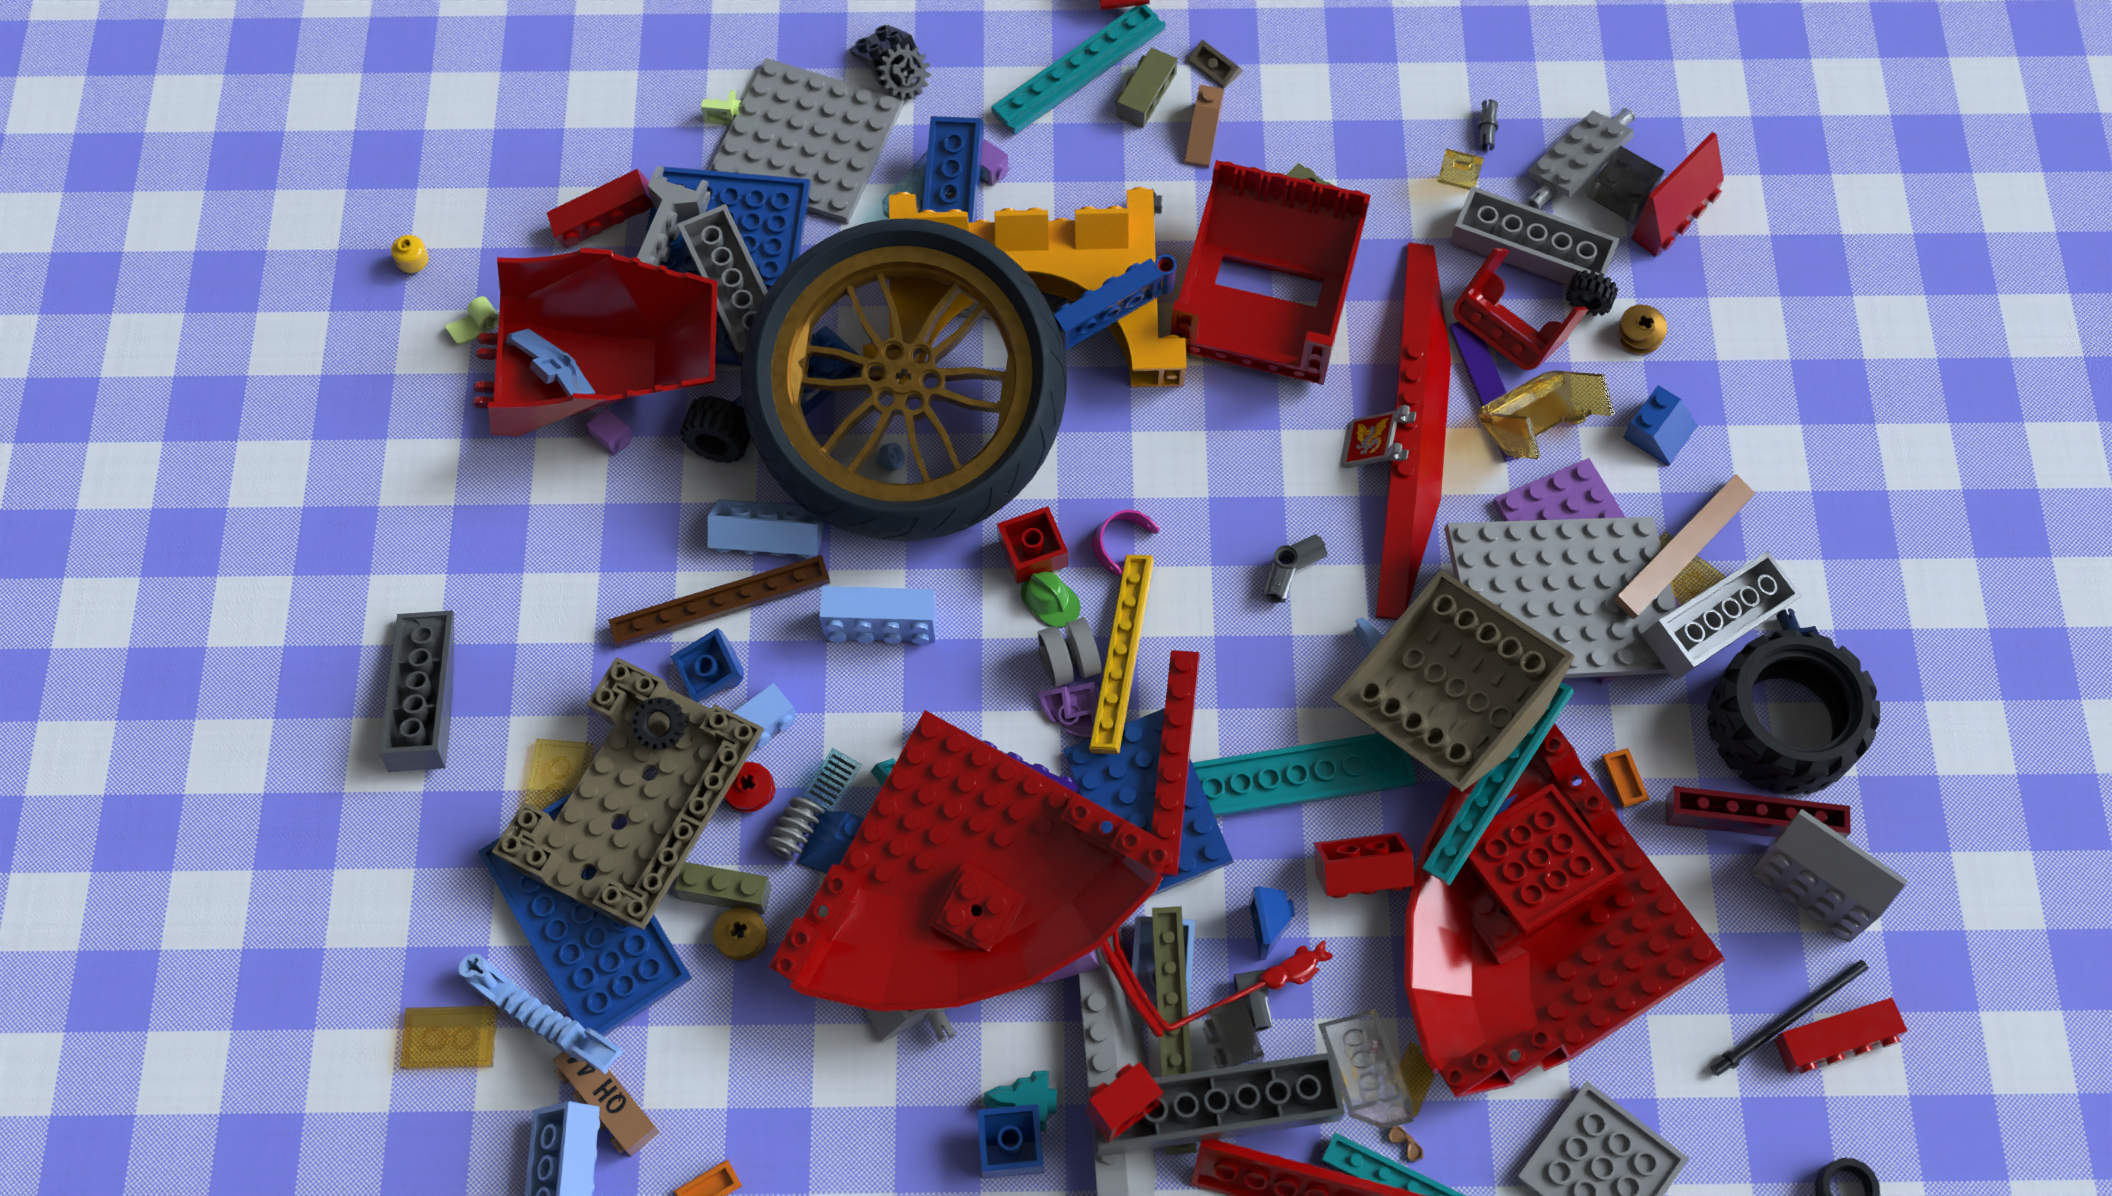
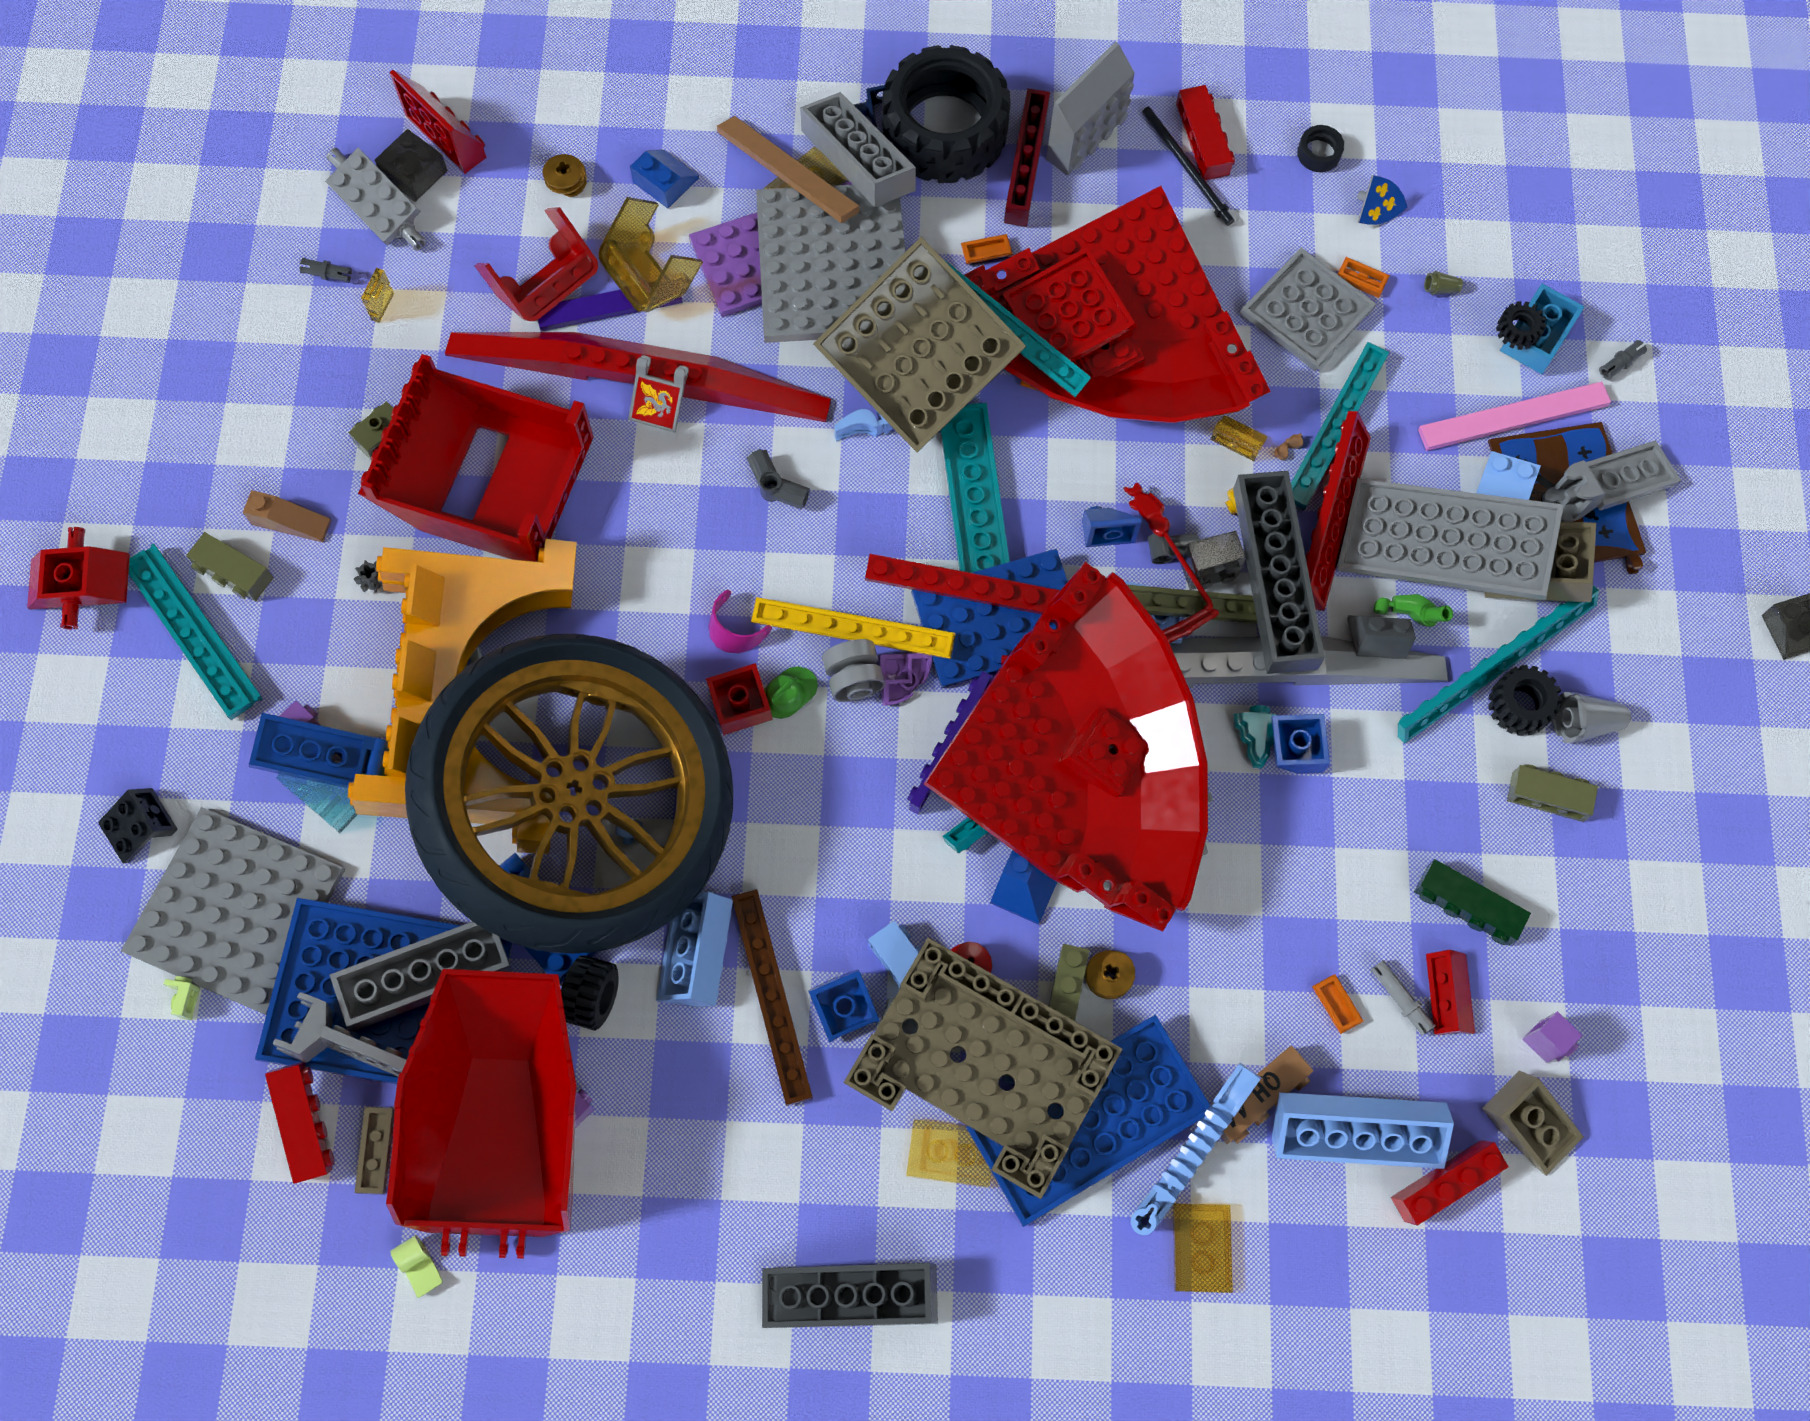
camera: 90 degrees left, 5 degrees up
(409, 253) = (328, 1348): yellow head -> none
(550, 362) = (490, 1167): medium blue plate -> none
(646, 736) = (932, 1031): black tyre -> none
(792, 827) = (1010, 923): light grey piece -> none
(832, 780) = (966, 890): clear light blue panel -> none
(878, 614) = (802, 840): light blue brick -> none
(904, 61) = (170, 801): dark grey gear -> none
(1115, 299) = (507, 584): blue hinge -> none
(1123, 1101) = (1295, 626): red brick -> none
(1214, 64) = (209, 504): dark tan slope -> none
(1364, 864) = (1064, 446): red brick -> none
(1367, 1070) = (1248, 451): clear slope -> none
(1534, 237) = (464, 239): light grey brick -> none
(1592, 292) = (526, 206): black tyre -> none

